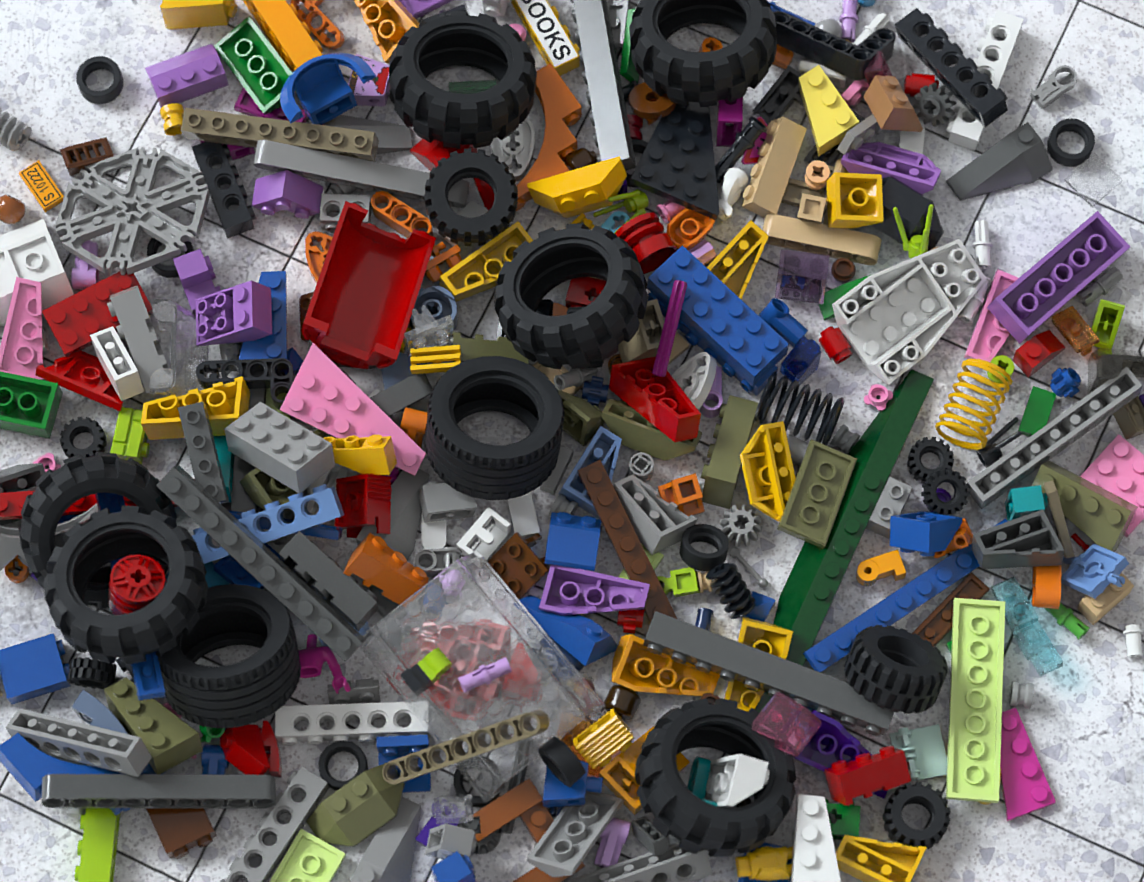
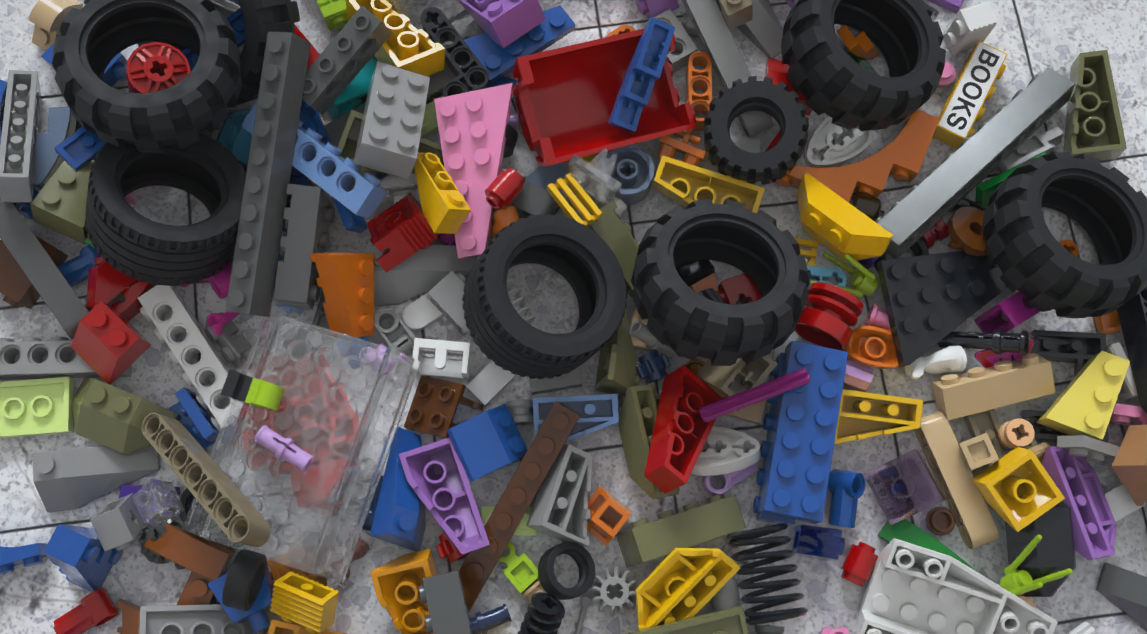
camera: 55 degrees right, 5 degrees up
(300, 773) = (108, 342): none -> red slope
(332, 749) = (170, 386): black tyre -> none
(368, 244) = (641, 74): none -> blue slope
(390, 402) = (504, 189): none -> red brick
(449, 77) = (858, 45): none -> orange slope
(623, 701) = (361, 593): dark brown head -> none
(643, 472) = (609, 461): light grey wheel -> none

